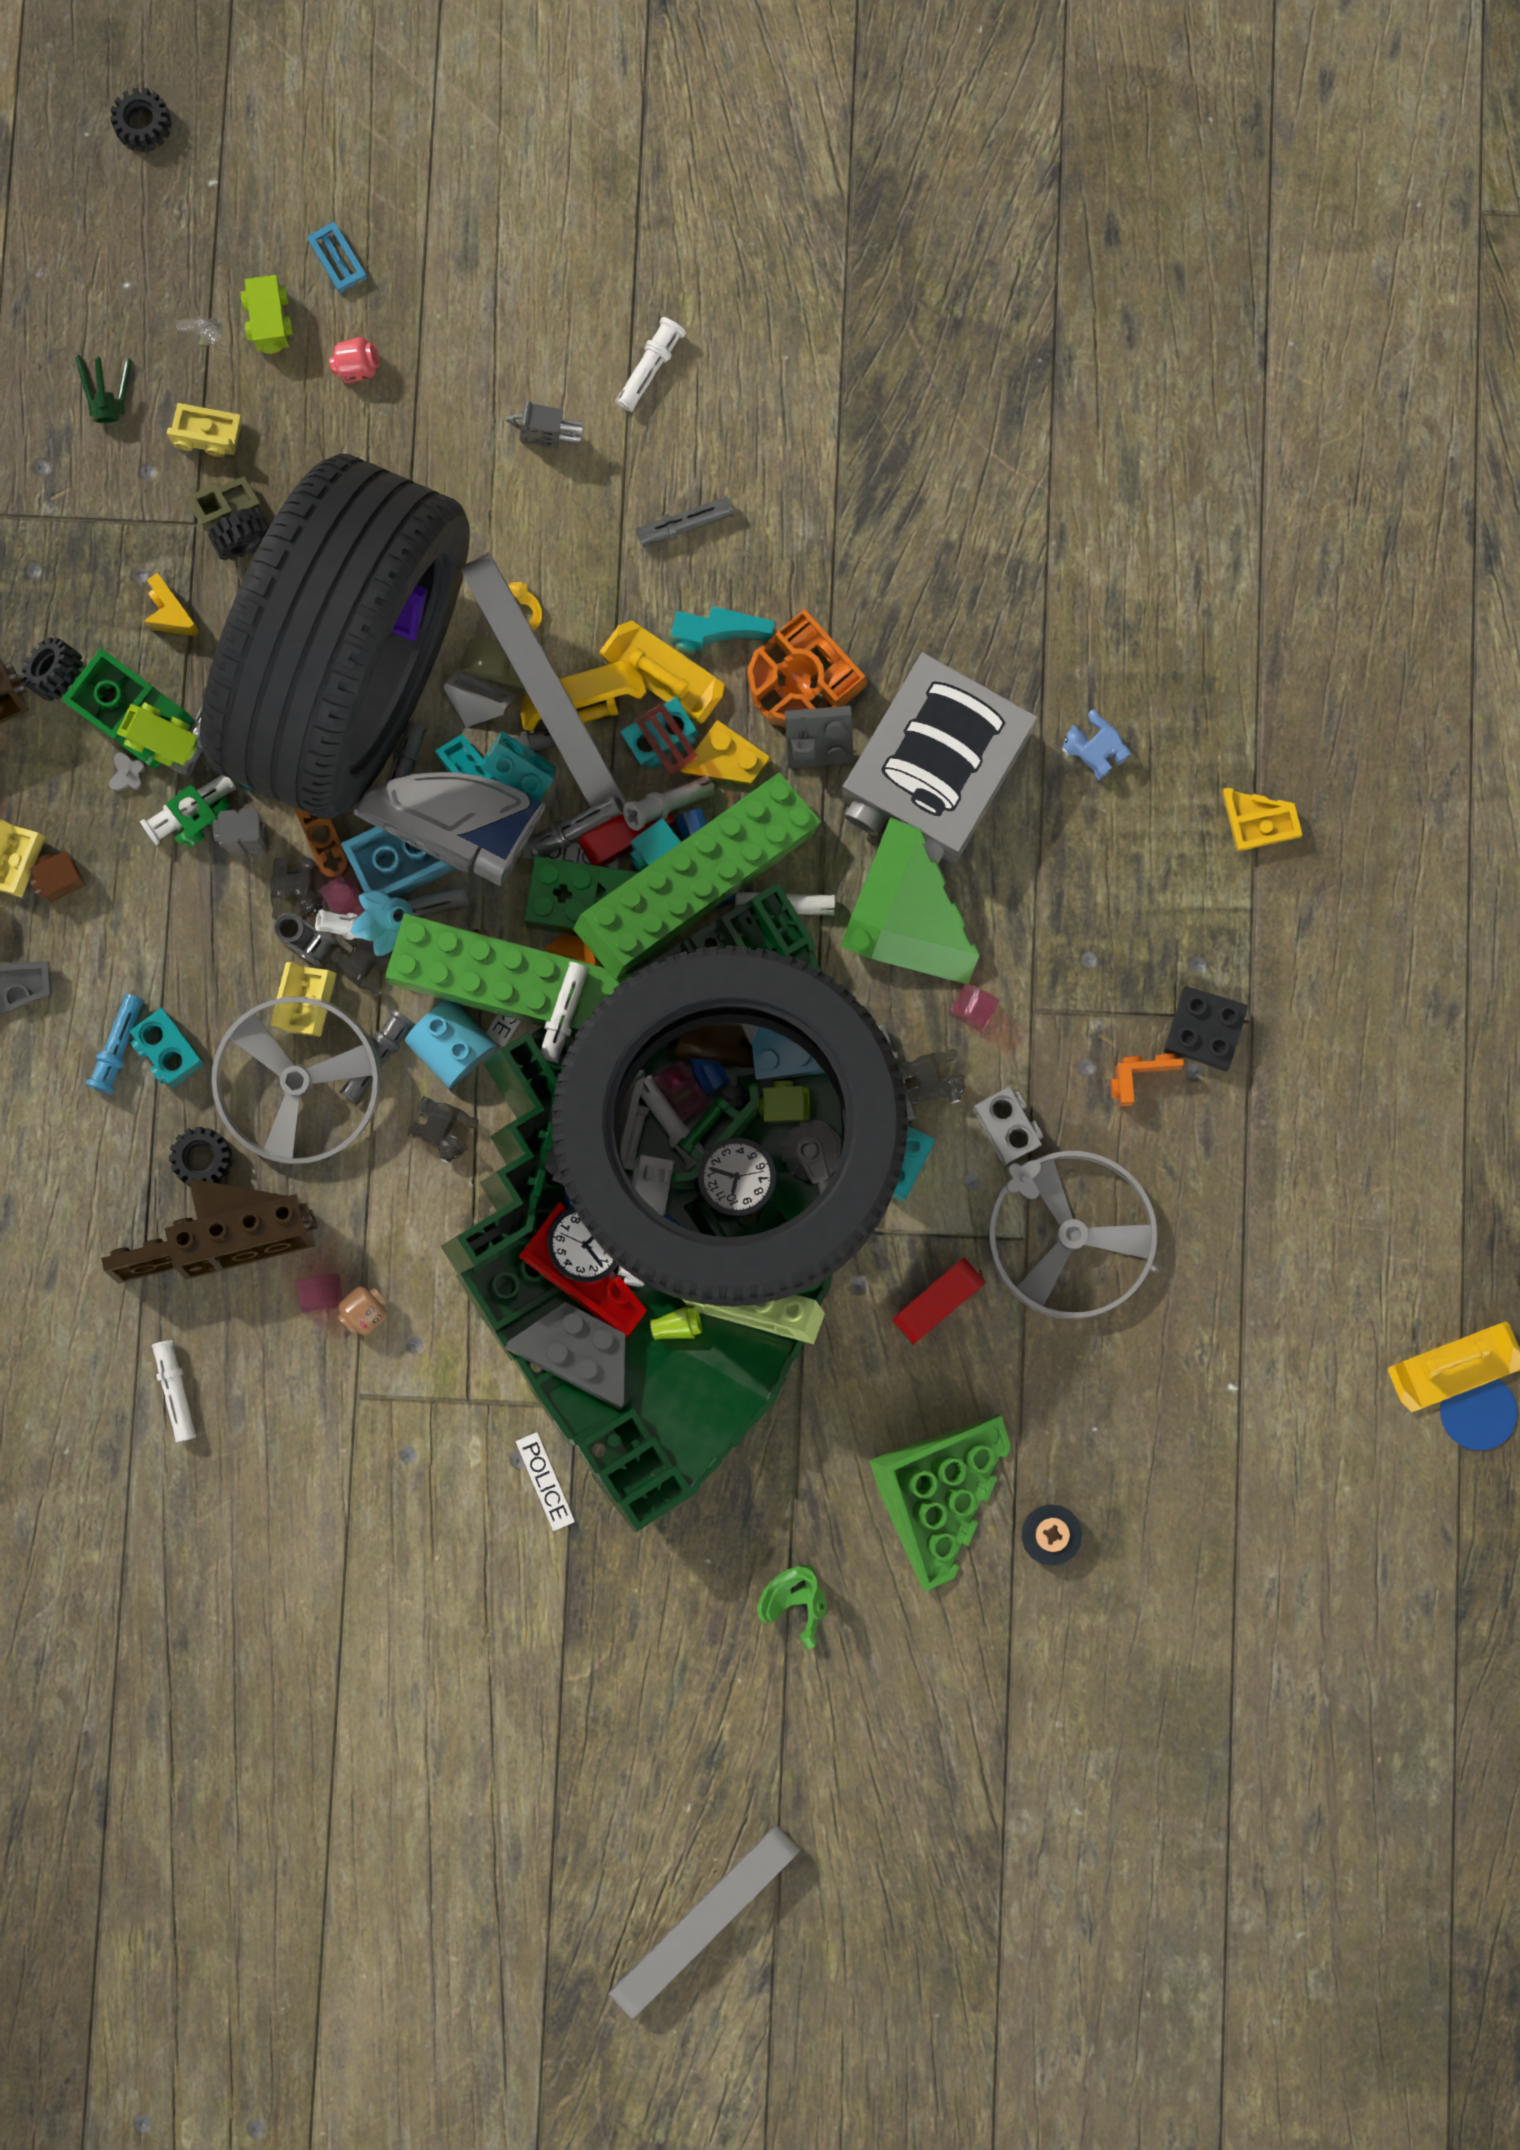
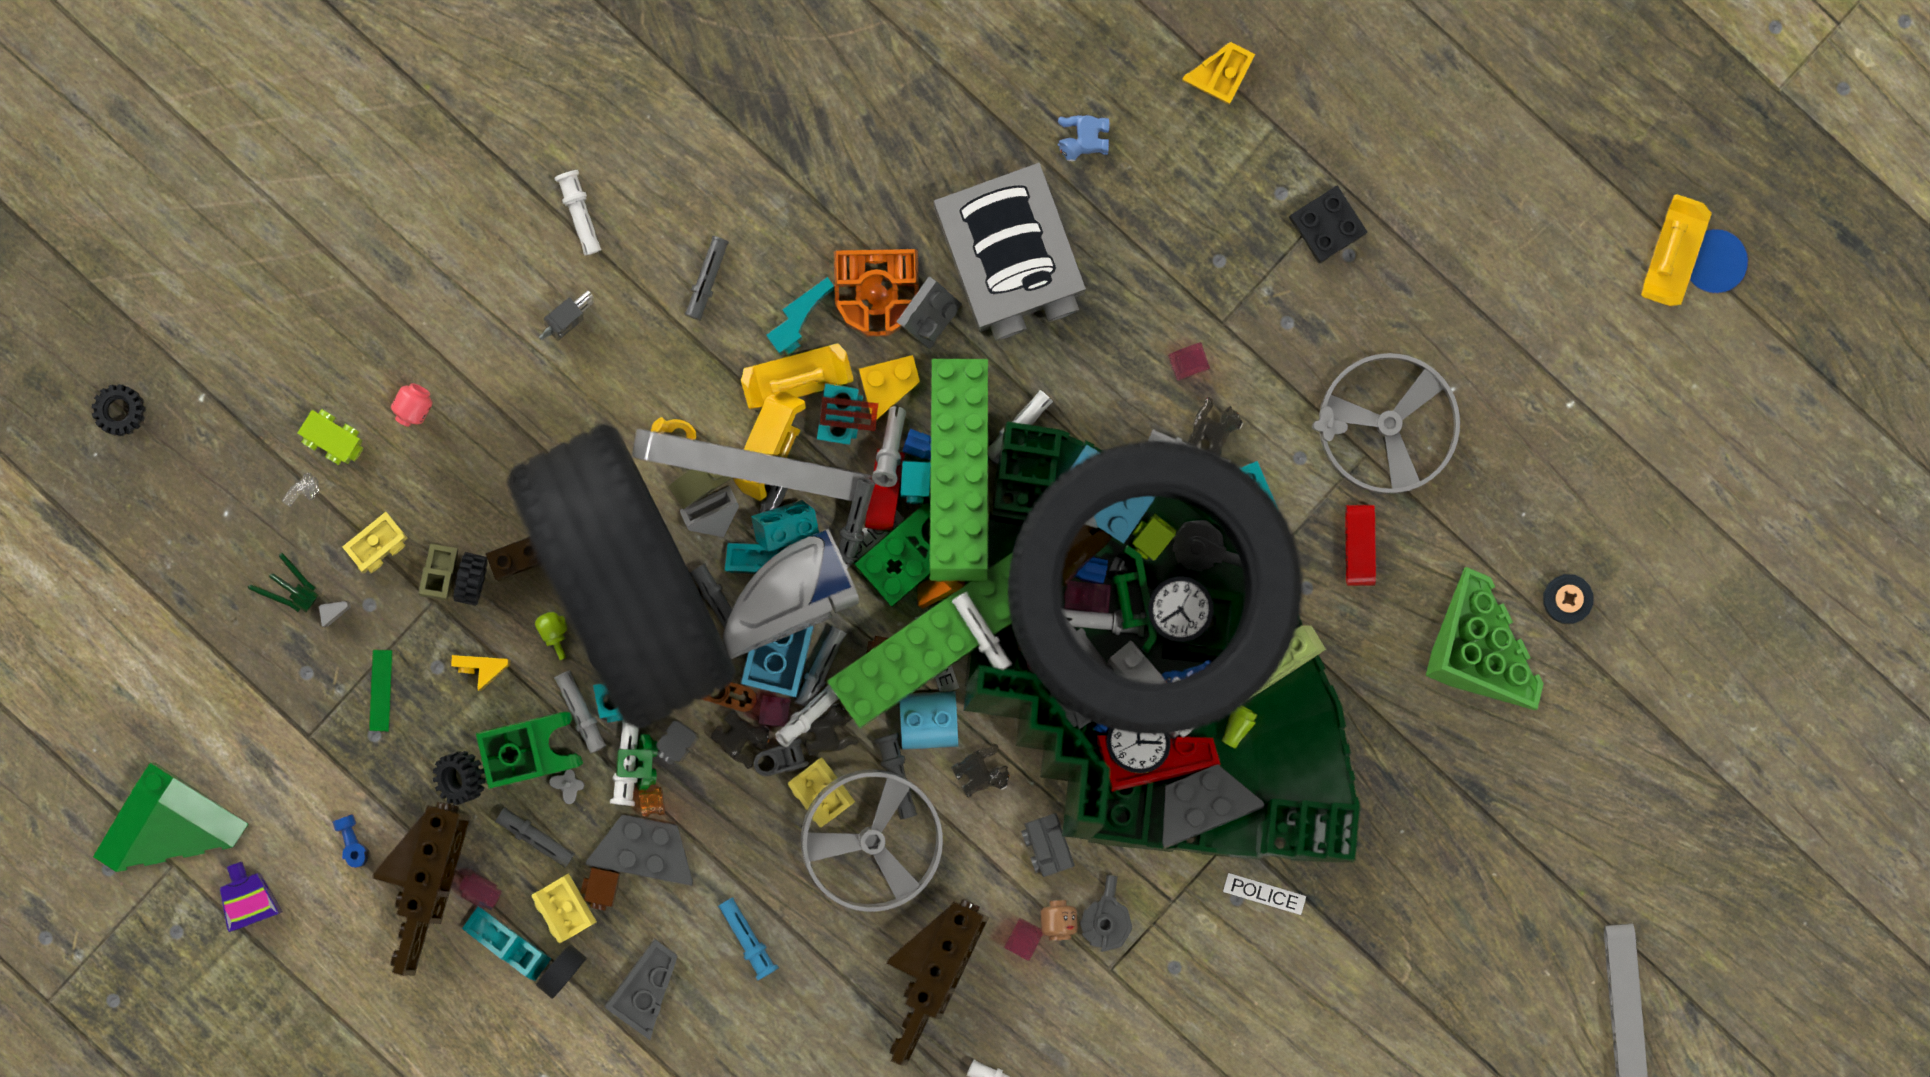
camera: 55 degrees left, 5 degrees up
(55, 788) = (534, 837): none -> dark grey pin
(78, 543) = (380, 690): none -> green sticker
(111, 442) = (332, 611): none -> light grey slope
(122, 887) = (644, 850): none -> dark grey wing
(167, 739) = (574, 741): lime brick -> none
(171, 857) = (652, 802): none -> clear orange wheel
(172, 1044) = (778, 900): teal brick -> none
(192, 1139) = (856, 956): black tyre -> none
(350, 280) = (350, 362): dark azure tile -> none
(377, 920) = (814, 702): medium azure plate -> none
(399, 1356) = (1107, 921): none -> dark grey piece
(421, 1249) = (1048, 845): none -> dark grey brick
(779, 1596) = (1462, 804): bright green helmet -> none
(906, 912) = (1093, 353): bright green slope -> none
(1000, 1129) = (1284, 413): light grey brick -> none
(1122, 1085) = (1321, 310): orange bracket -> none

